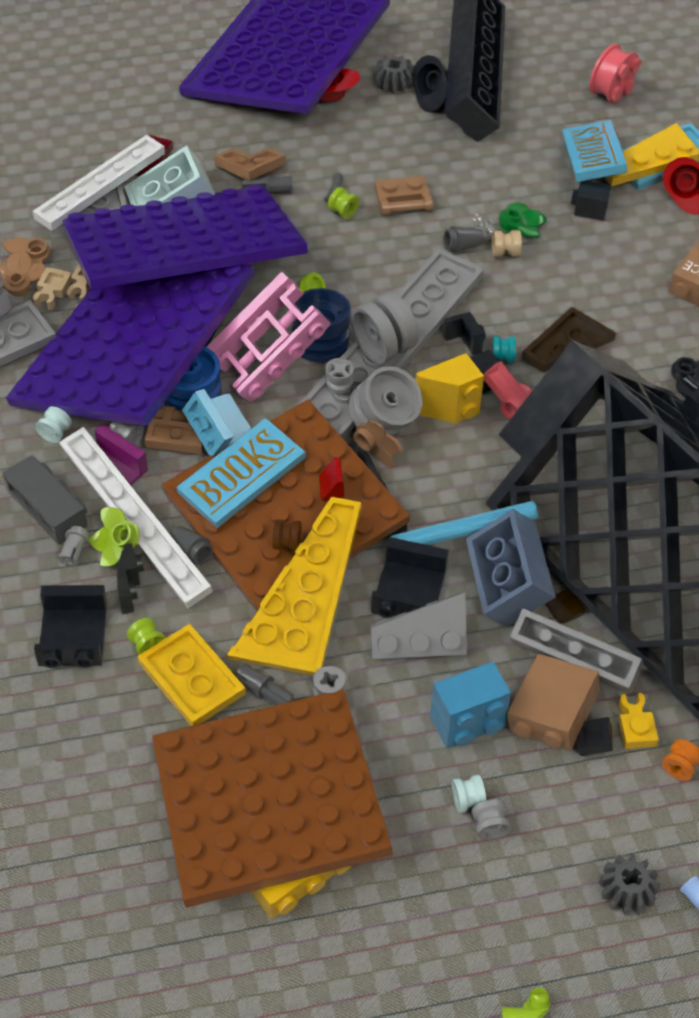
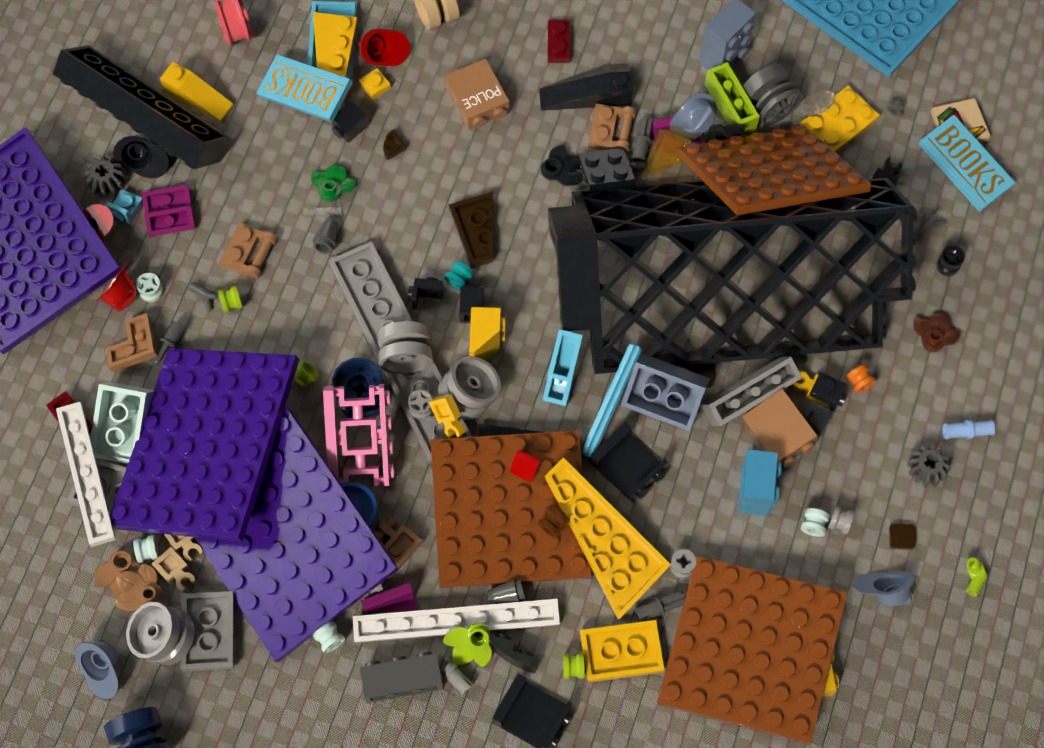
camera: 60 degrees left, 15 degrees up
(58, 257) = (145, 548): none -> light aqua wheel
(215, 420) = (412, 515): medium azure bracket -> none
(241, 472) = (473, 524): medium azure tile -> none
(294, 122) = (121, 290): none -> red piece
(312, 148) = (148, 281): none -> light aqua wheel
(344, 391) = (448, 413): none -> yellow plate
(374, 438) = (493, 416): medium nougat plate -> none
(376, 102) = (125, 207): none -> medium azure bracket
(398, 129) = (168, 210): none -> magenta slope
(424, 632) = (681, 474): light grey wing -> none
(439, 909) = (888, 588): none -> sand blue piece
(464, 465) = (562, 367): none -> medium azure slope
(506, 243) = (354, 208): tan wheel -> none
(506, 389) = (507, 296): coral piece -> none
(521, 902) = (902, 536): none -> dark brown piece
(525, 90) = (194, 92): none -> yellow slope
(598, 245) = (393, 145): none -> dark brown tile
(639, 731) = (829, 391): none -> black bracket
(649, 203) = (374, 84): none -> yellow plate

